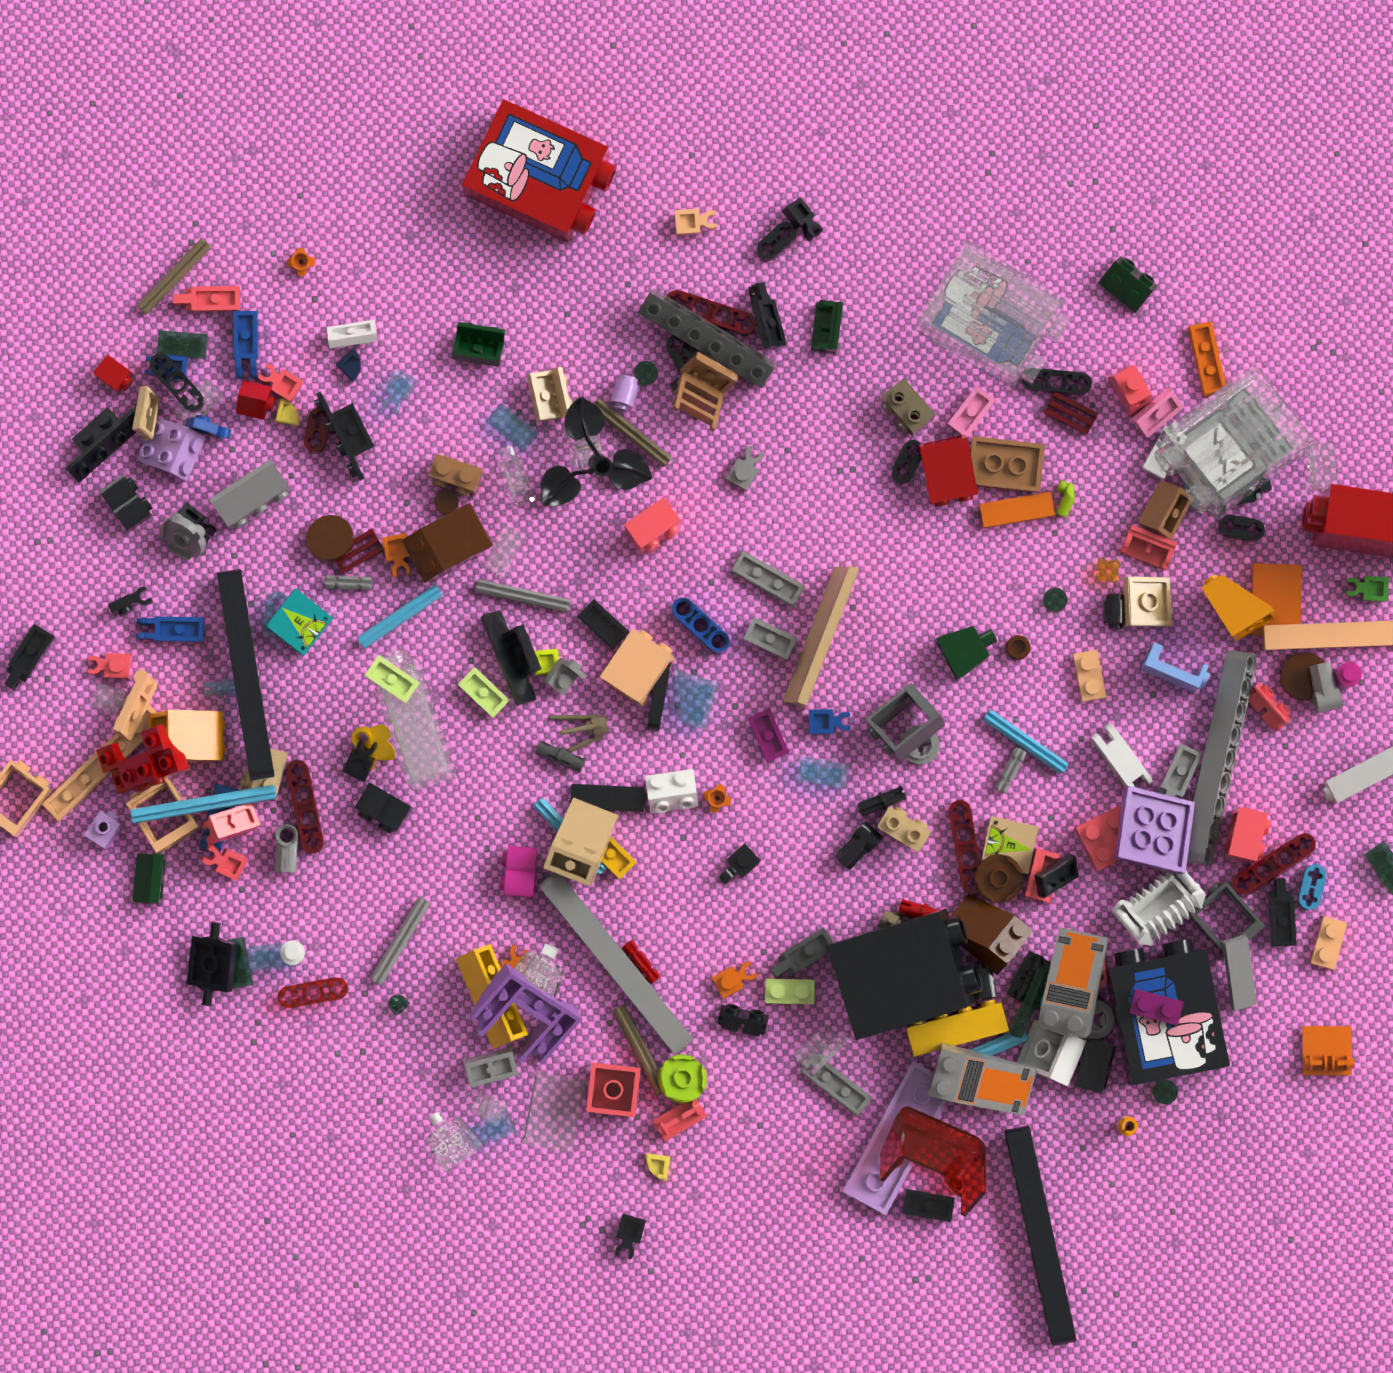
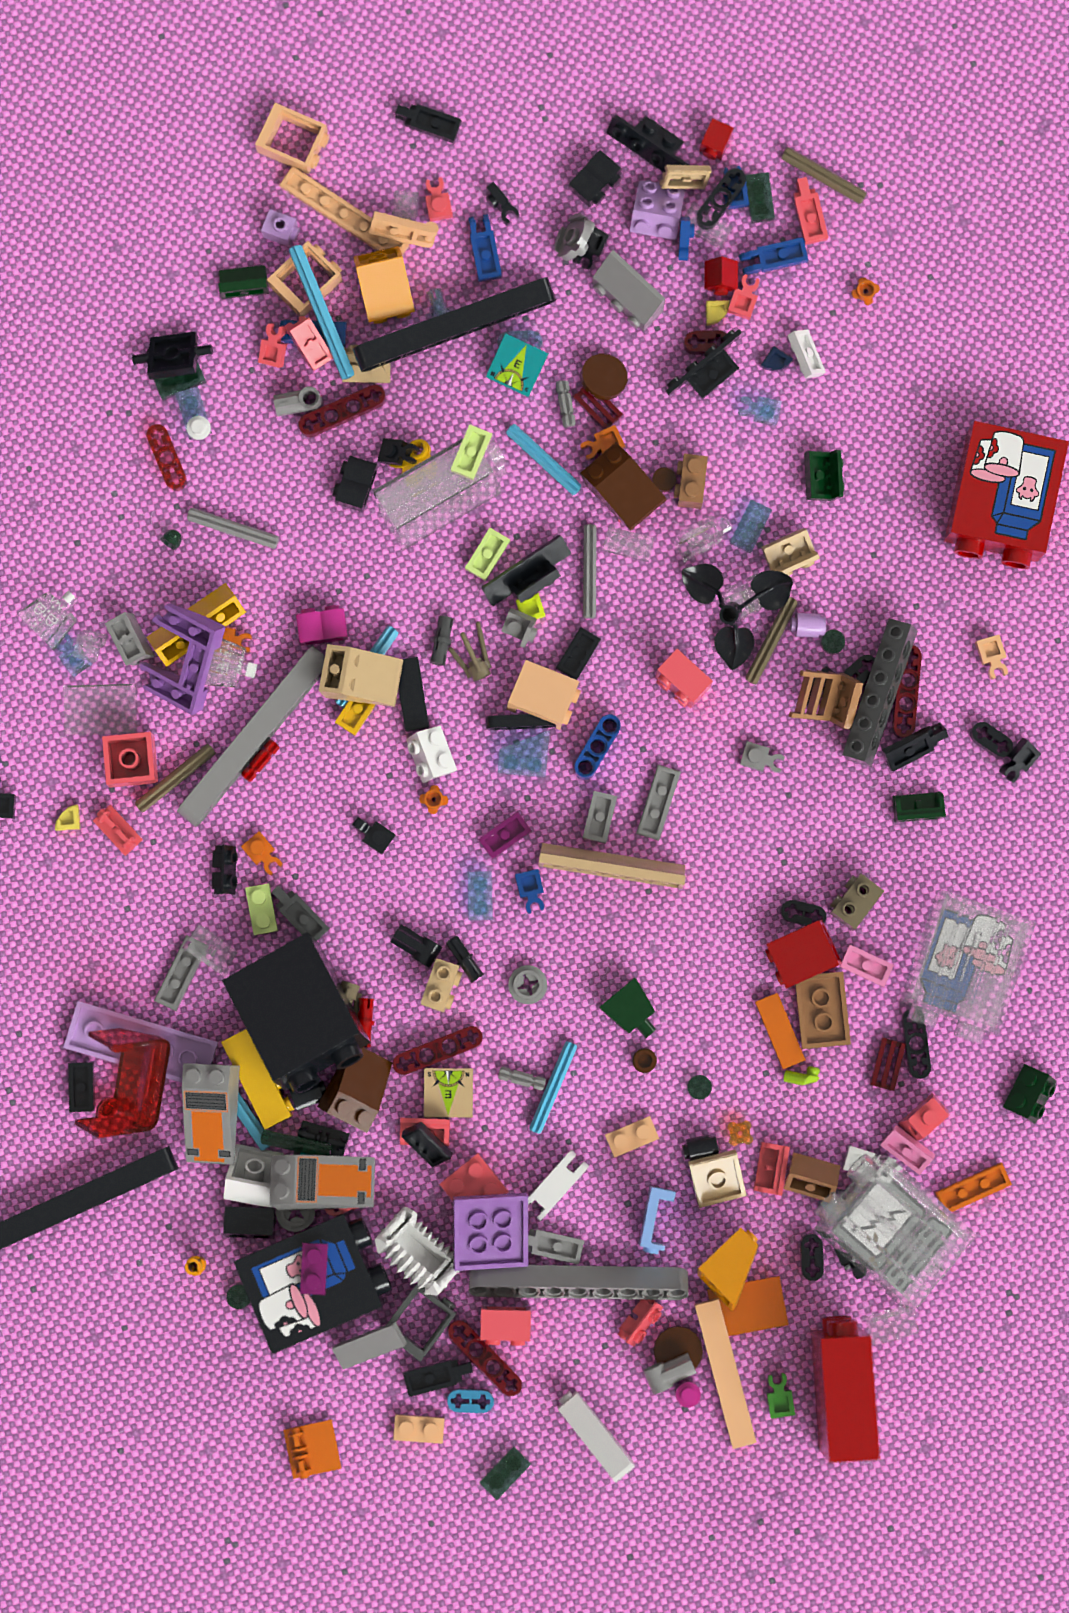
camera: 75 degrees right, 0 degrees up
(148, 767) = (341, 247): red bracket -> none
(682, 1079) = (155, 823): lime tile -> none
(895, 706) = (555, 949): dark grey window -> none
(998, 878) = (412, 1088): reddish brown tile -> none

